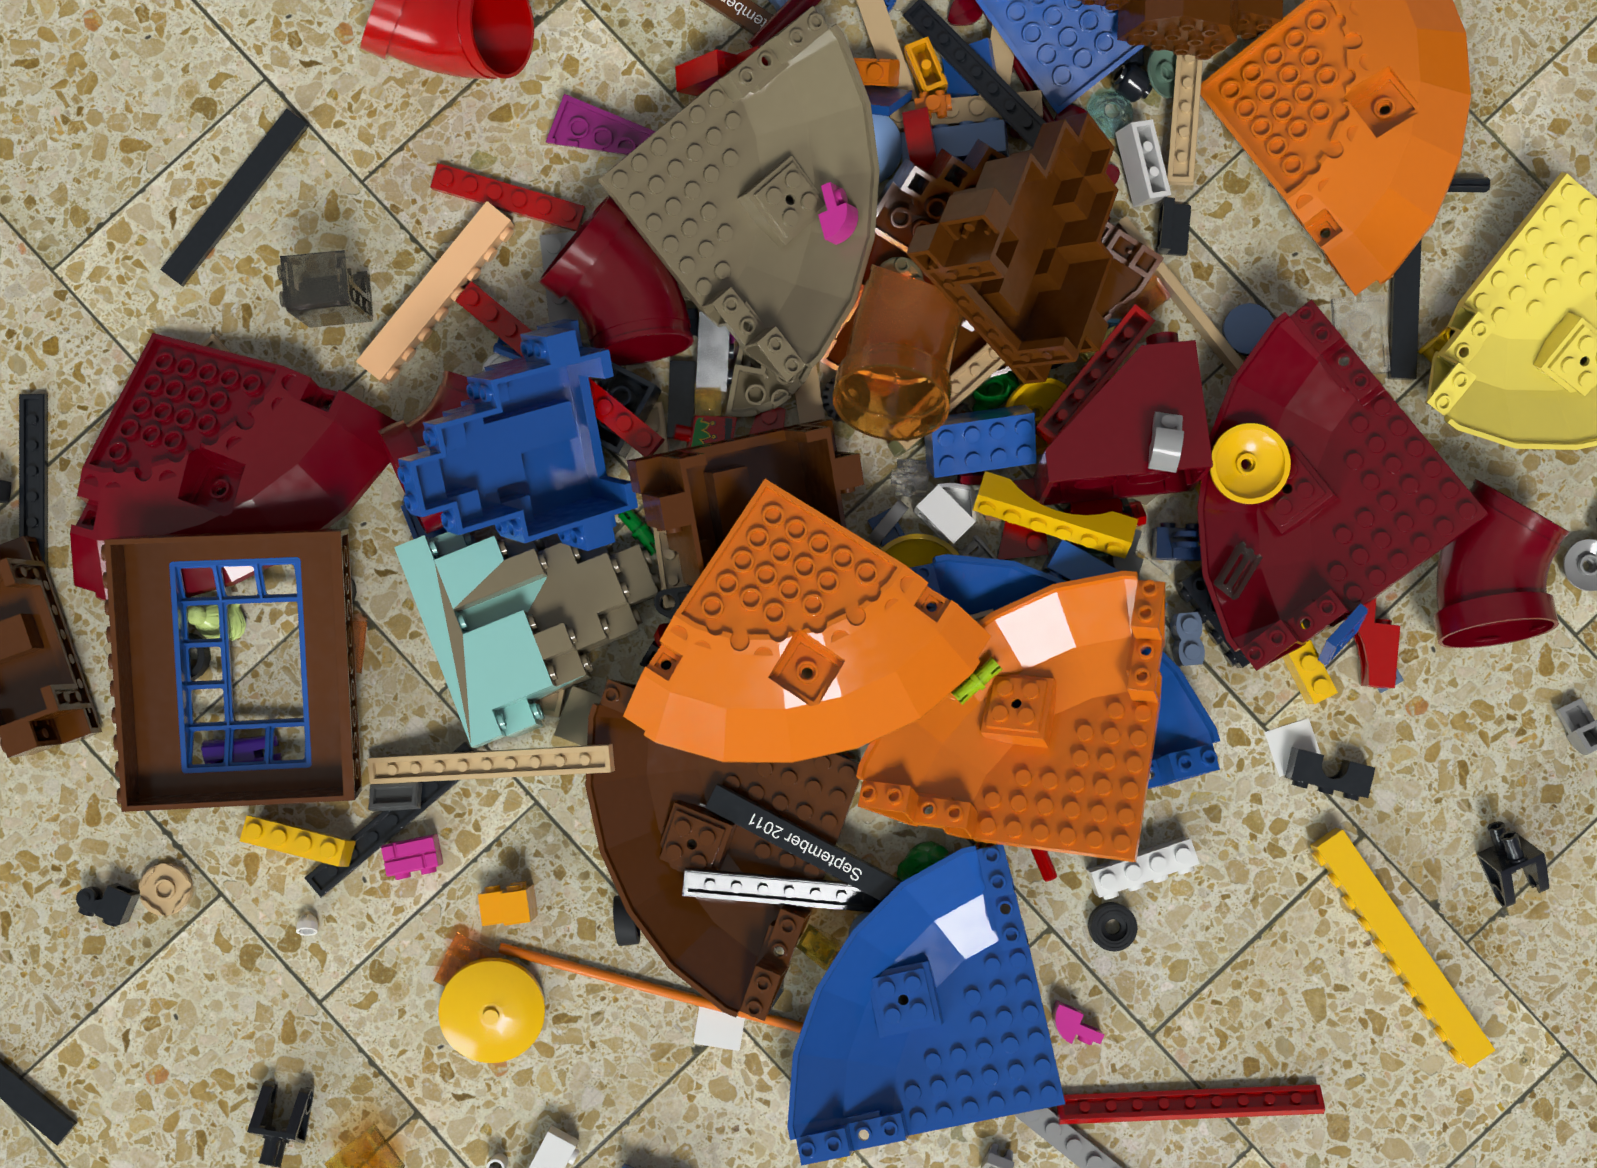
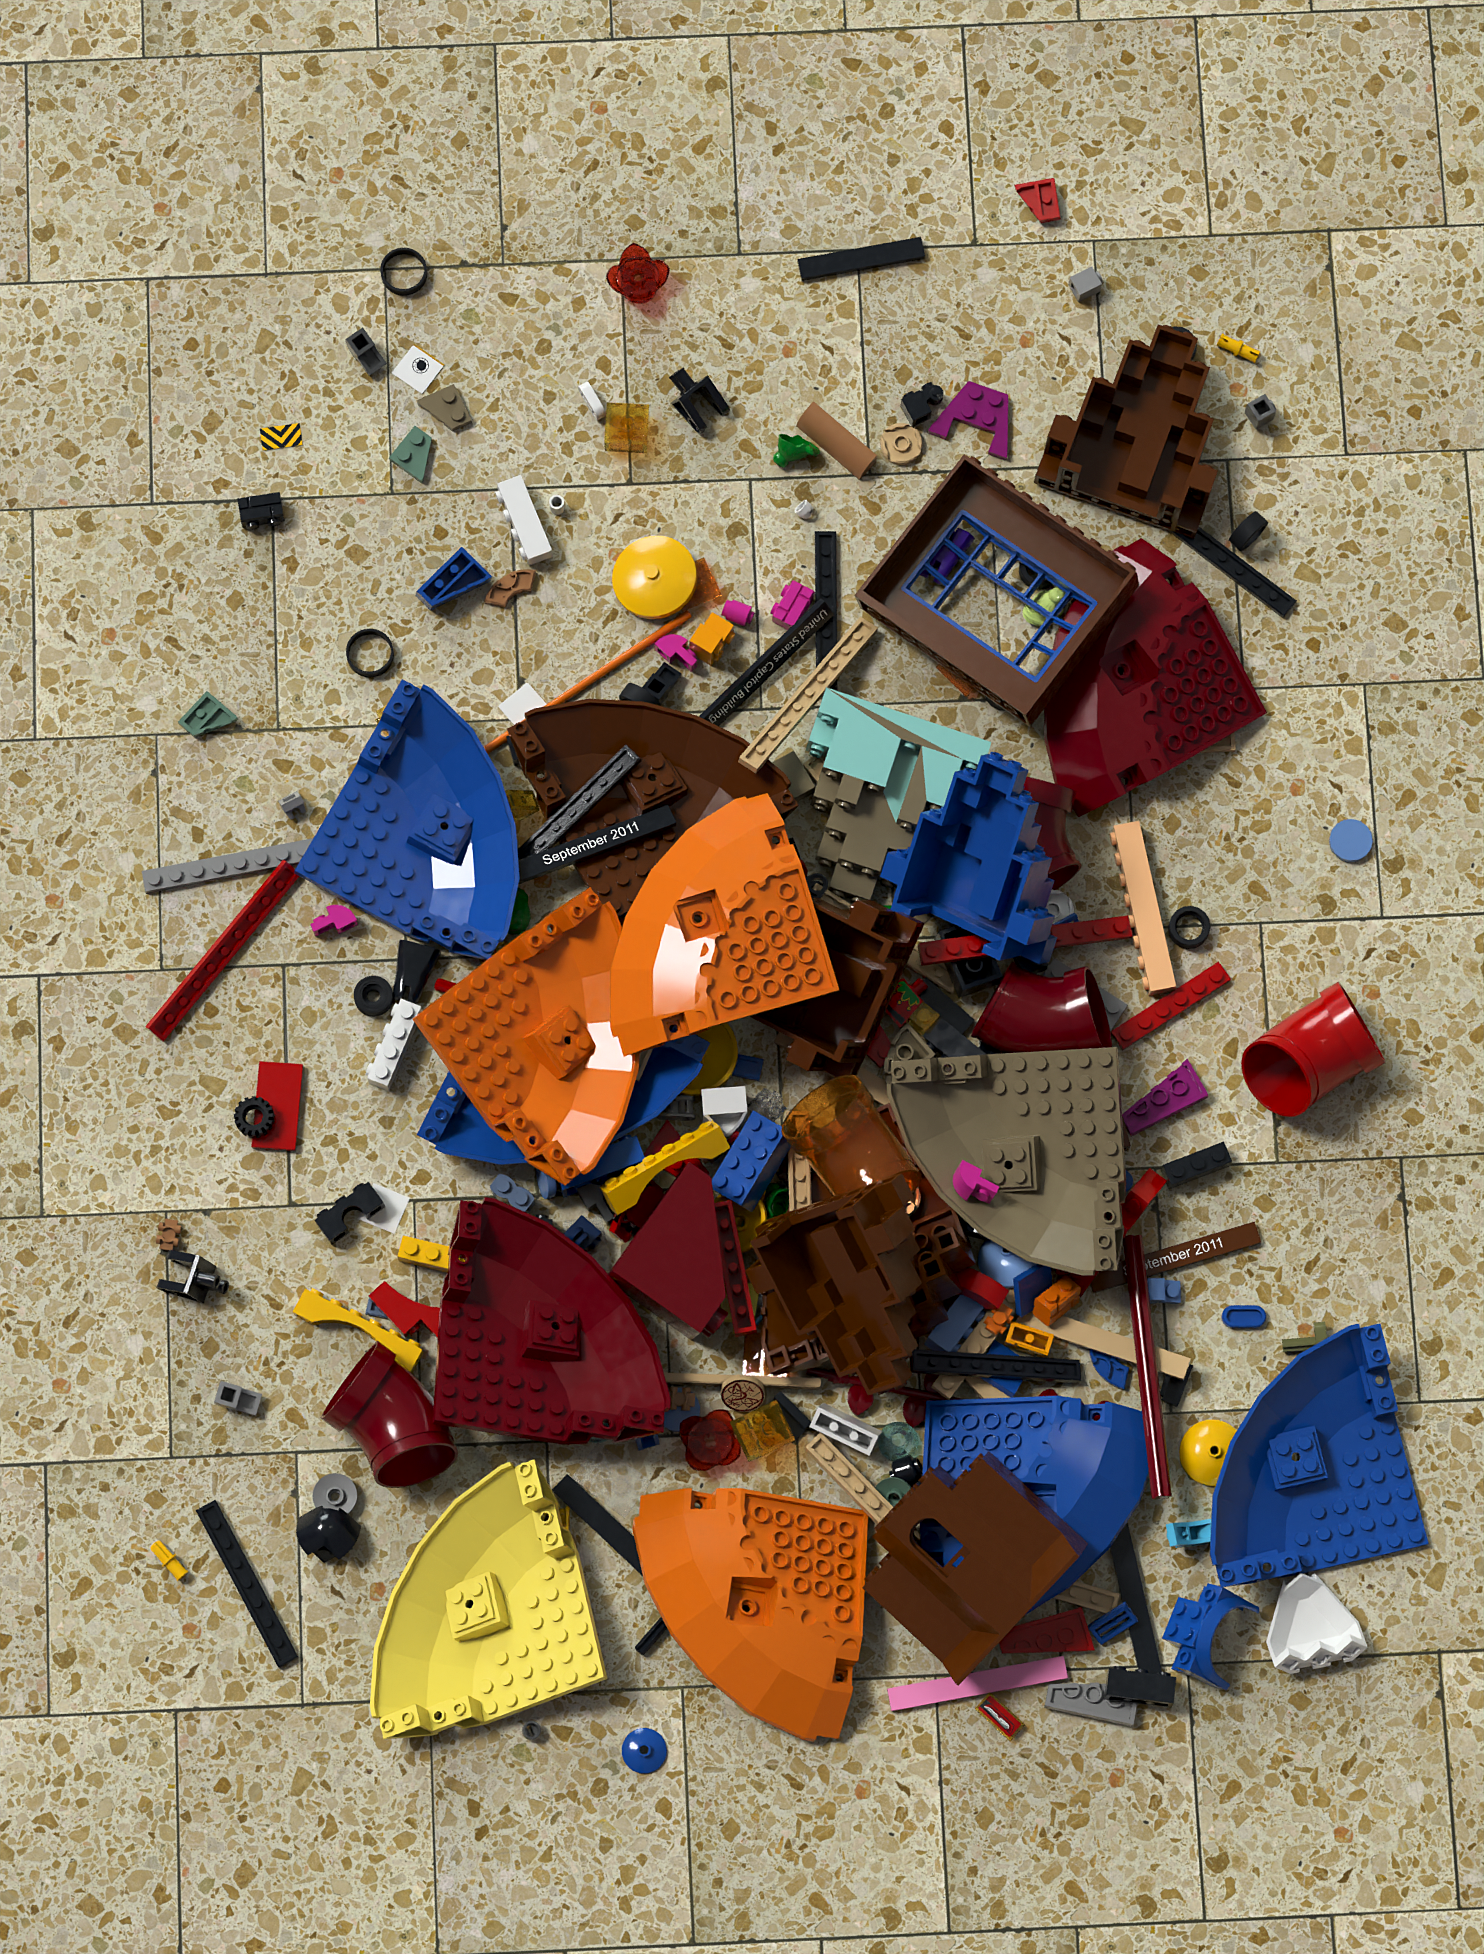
camera: 125 degrees right, 10 degrees down
(68, 842) = (981, 409): none -> magenta wing
(212, 952) = (836, 440): none -> medium nougat brick
(214, 161) = (1350, 840): none -> medium blue tile
(234, 197) = (1316, 834): black tile -> none
(255, 986) = (793, 449): none -> green hair
(297, 841) = (861, 544): yellow brick -> none
(323, 290) = (1195, 835): clear smoke windscreen -> none
(395, 796) = (838, 625): dark grey tile -> none
(410, 221) = (1199, 914): none -> black tyre
(461, 902) = (738, 612): none -> dark pink brick
(490, 831) = (768, 663): none -> black tile
(546, 934) = (674, 647): none -> dark pink brick
(590, 915) = (662, 682): none -> black brick
(613, 1140) = (509, 586): none -> medium nougat tile
(638, 52) = (1196, 1165): none -> black brick
(888, 522) = (750, 1067): light grey beam -> none
(977, 680) = (602, 1027): lime pin -> none
(1057, 910) = (413, 969): none -> black piece
(1166, 442) = (652, 1251): light grey brick -> none
(1190, 279) = (742, 1393): none -> tan tile
(1211, 232) = (762, 1431): none -> clear yellow brick
(1239, 329) = (681, 1399): none -> medium nougat piece
(1254, 562) = (536, 1265): clear smoke tile -> none
(1267, 461) = (585, 1296): yellow dish -> none
(1275, 269) = (715, 1424): none -> clear red brick
(1287, 925) = (281, 1087): none -> red tile
(1336, 941) = (254, 1130): none -> black tyre
(1343, 634) = (433, 1282): blue tile -> none
(1402, 947) = (202, 1164): yellow brick -> none
(1440, 726) = (317, 1311): none -> yellow arch
(1484, 922) = (168, 1239): none -> medium nougat piece
(1557, 117) = (644, 1762): none -> blue dish

